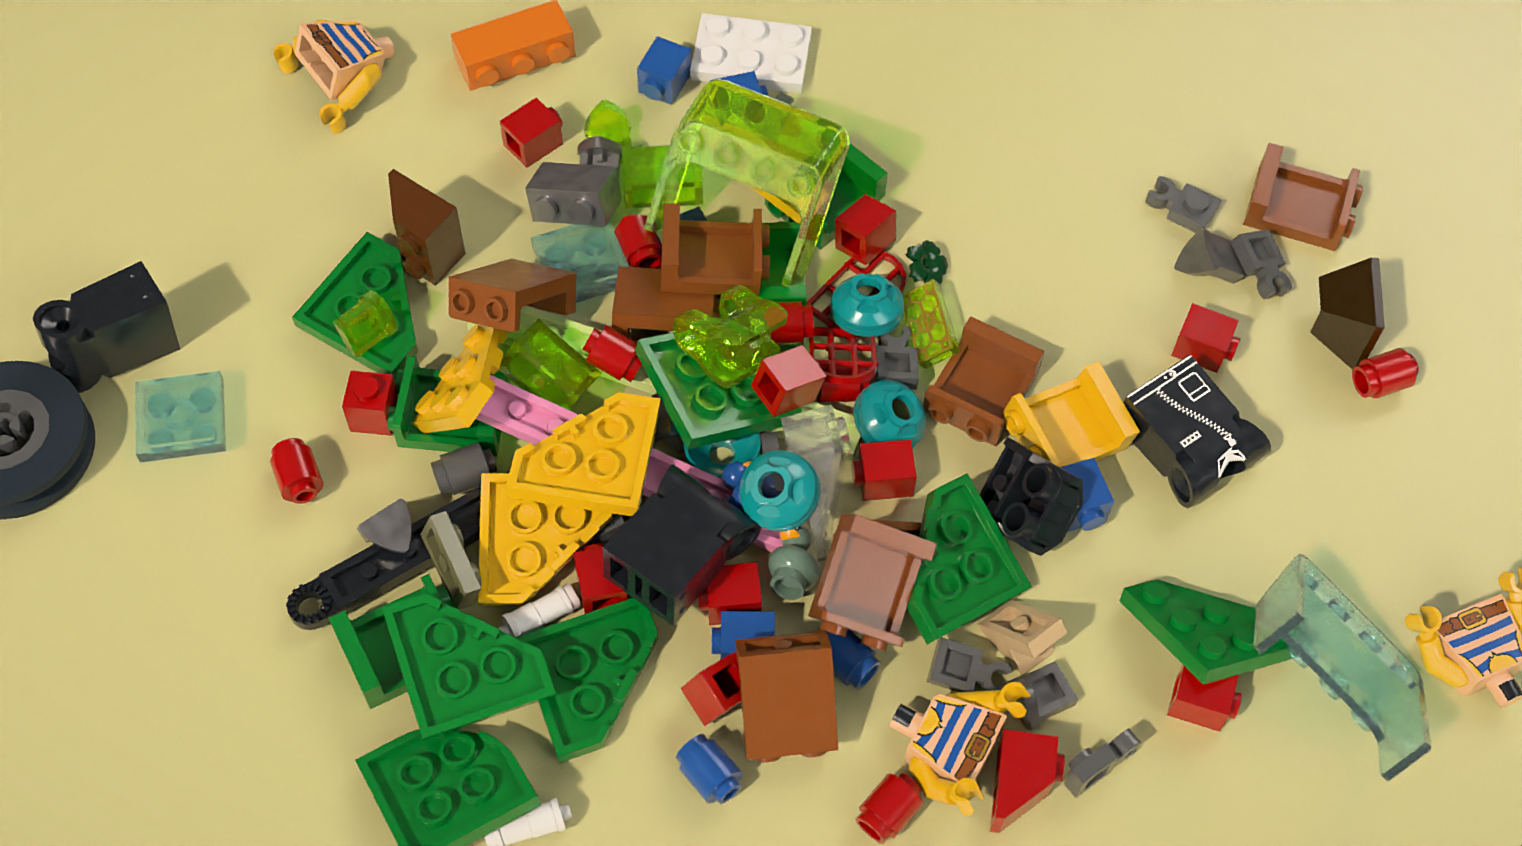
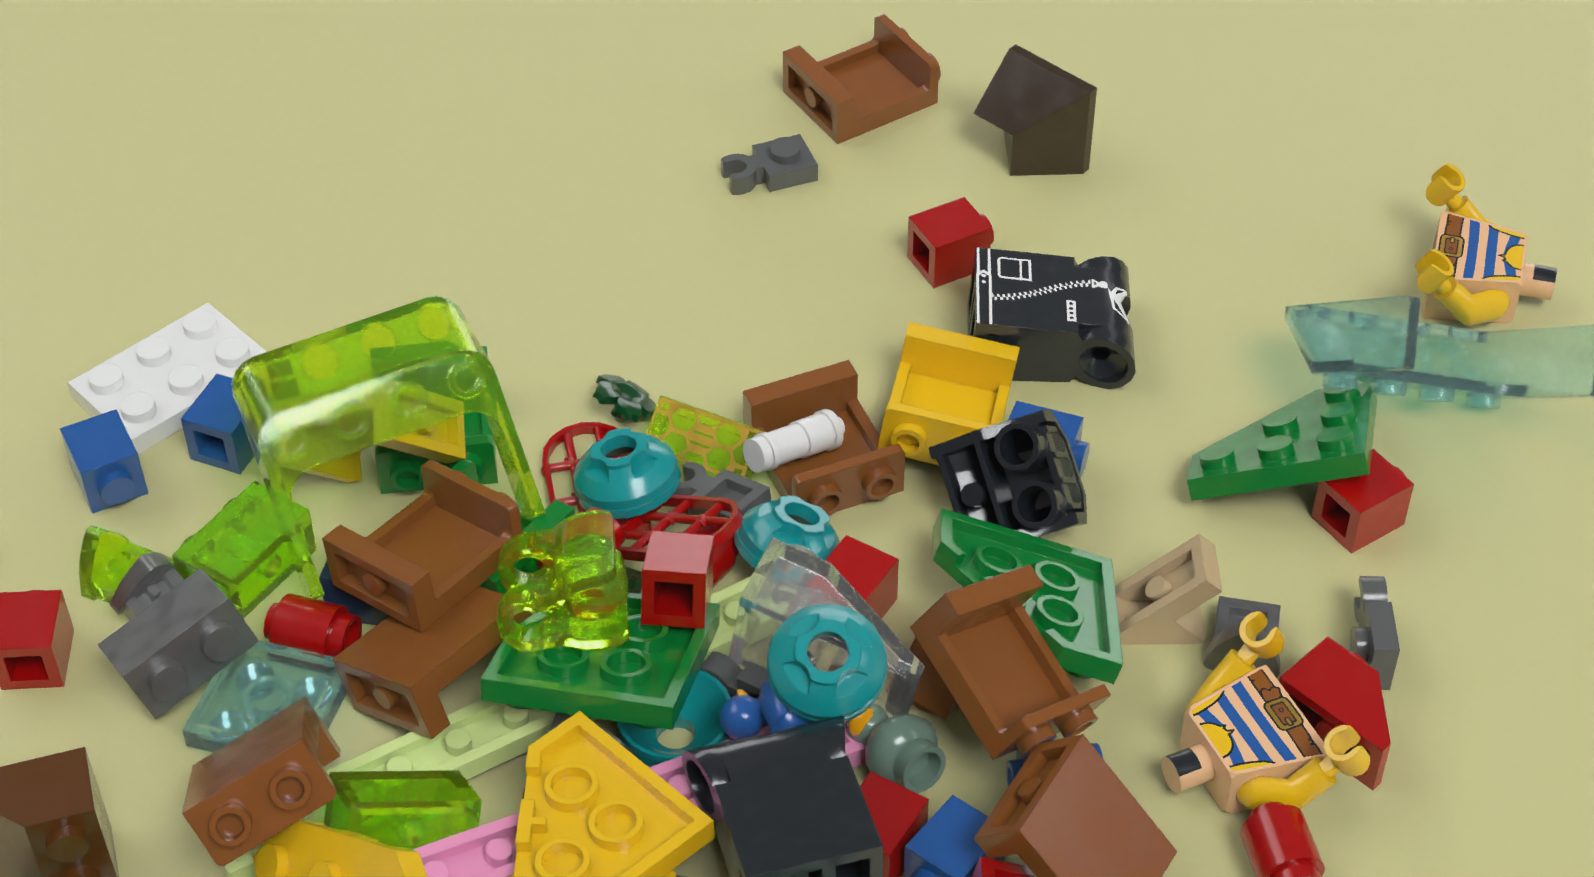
camera: 50 degrees left, 15 degrees down
(612, 353) = (454, 732): red brick -> none
(865, 229) = (535, 412): red brick -> none
(960, 667) = (1160, 682): dark grey plate -> none
(965, 367) = (797, 440): none -> white piece
(1210, 255) = (856, 182): flat silver tile -> none
(1262, 258) = (899, 149): dark grey plate -> none
(1385, 373) = (1119, 146): red brick -> none

